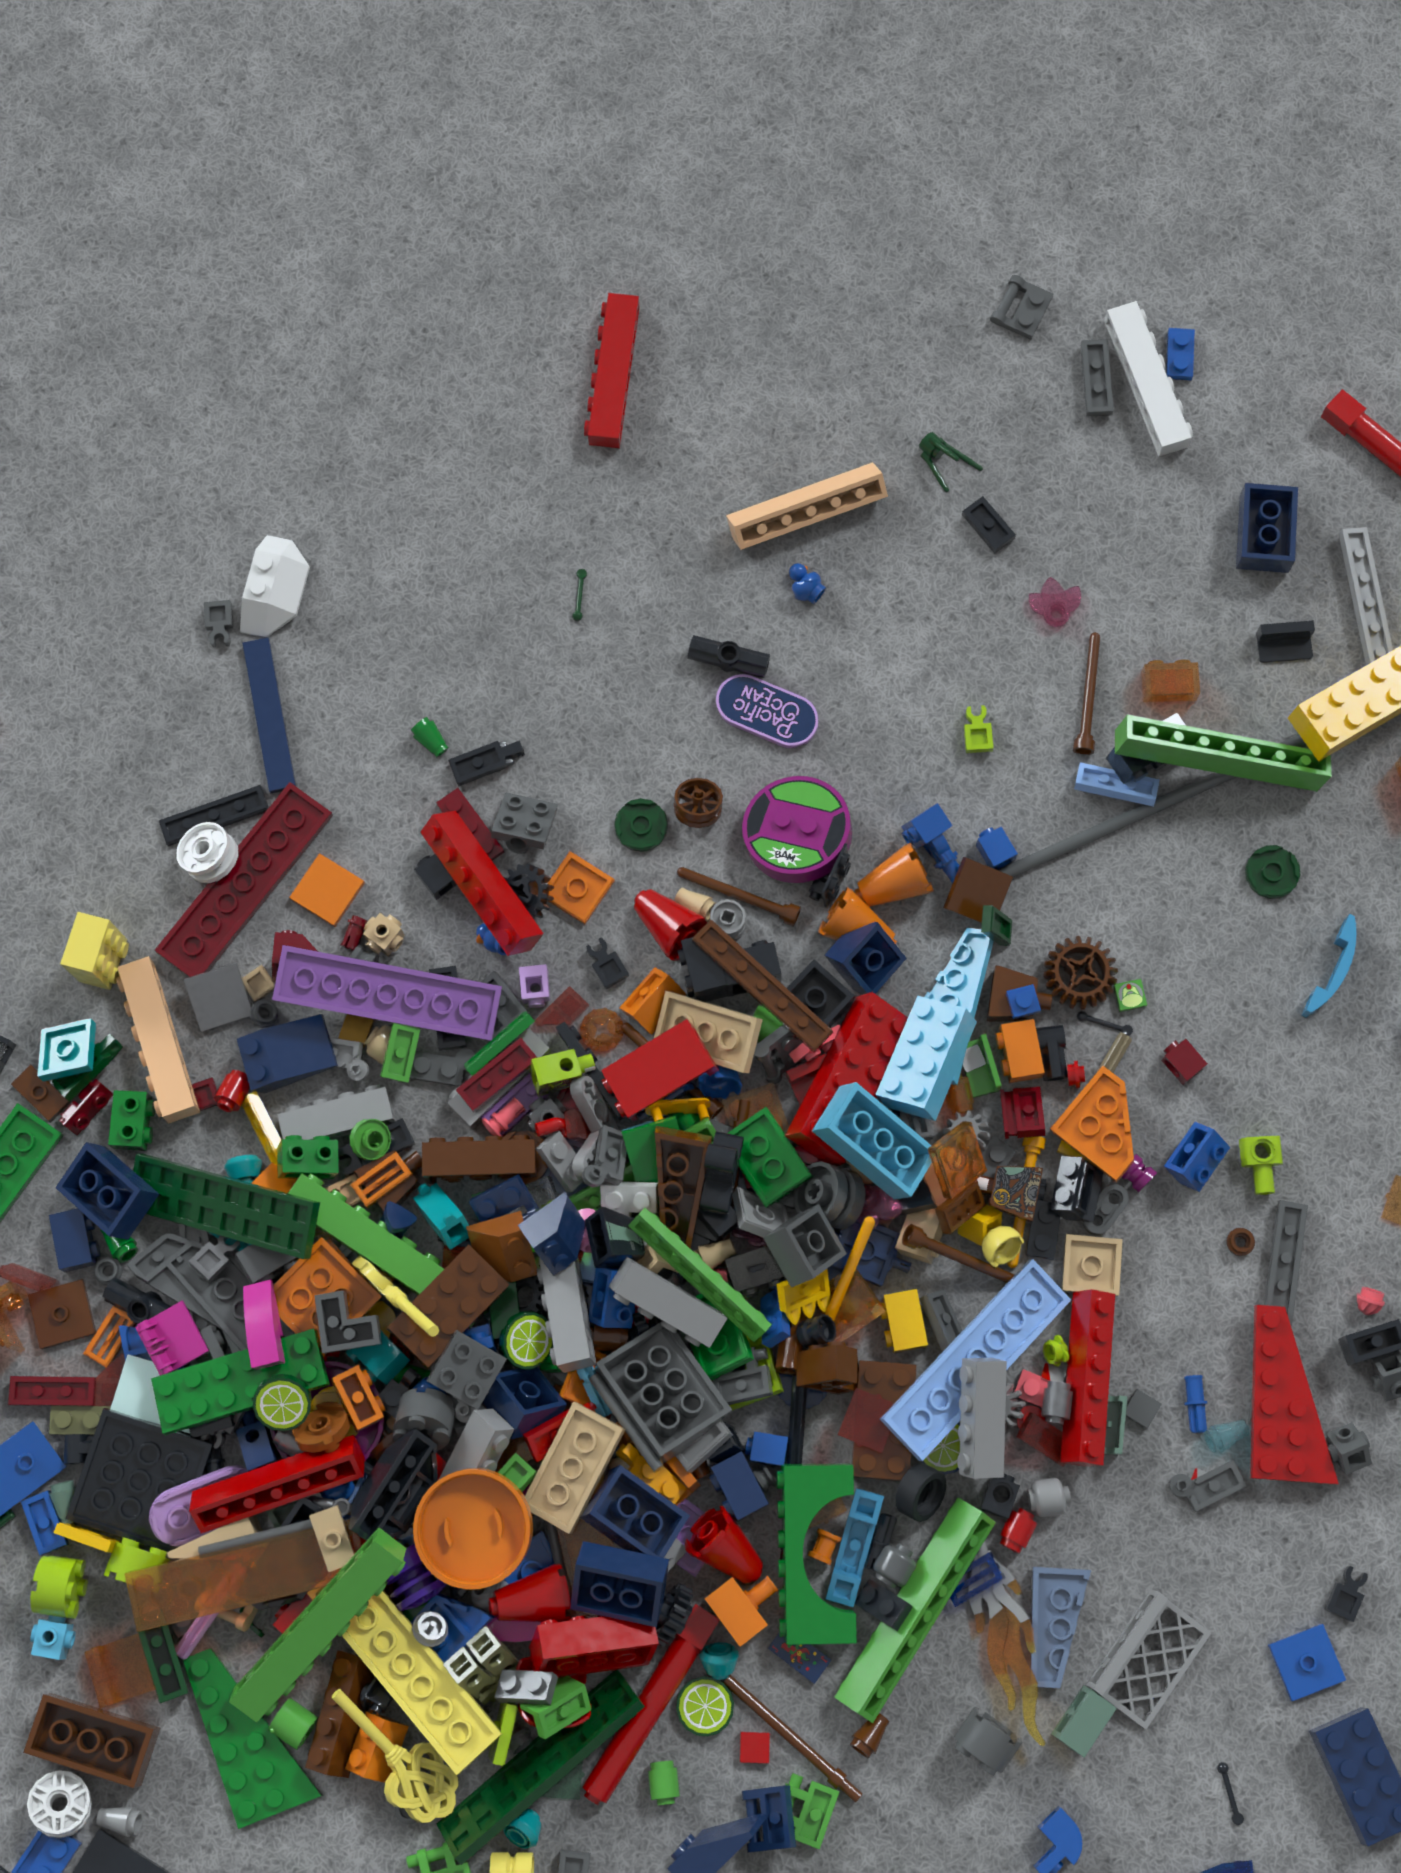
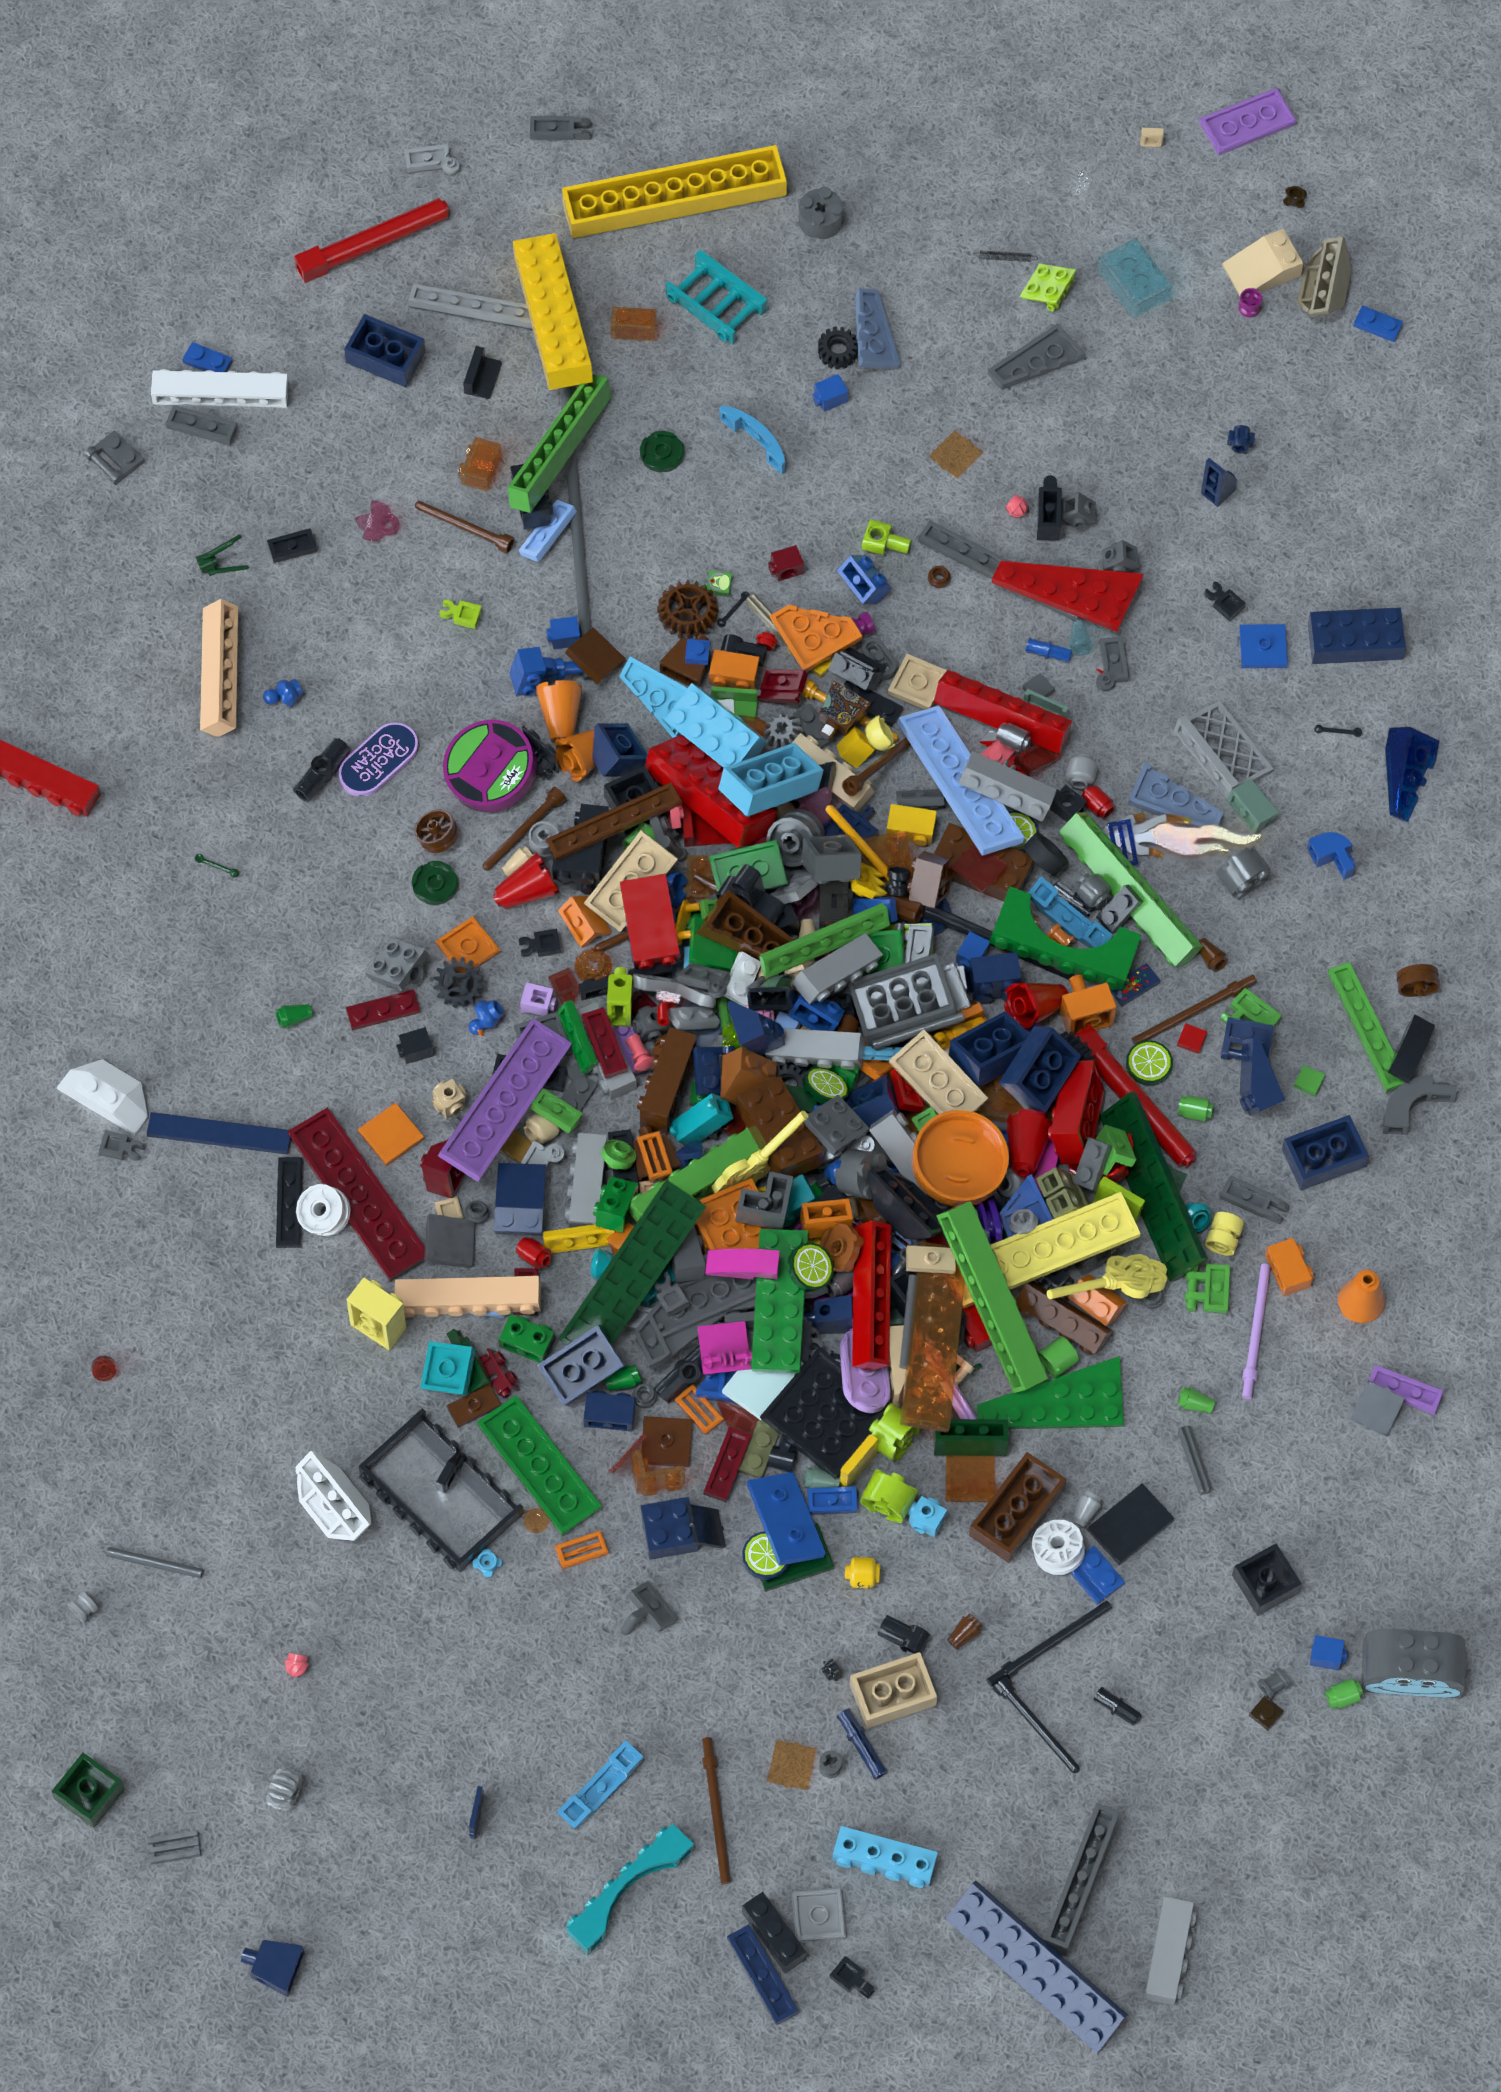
camera: 75 degrees left, 10 degrees down
(354, 932) = (436, 1122): dark red pin -> none
(481, 883) = (438, 1006): red brick -> none
(484, 761) = (332, 981): black hinge -> none
(719, 1659) = (1119, 1038): teal cone -> none
(957, 1159) = (805, 734): clear orange plate -> none
(957, 1211) = (841, 748): reddish brown plate -> none
(996, 925) = (628, 650): dark green tile -> none
(1055, 1351) = (976, 732): lime plate -> none

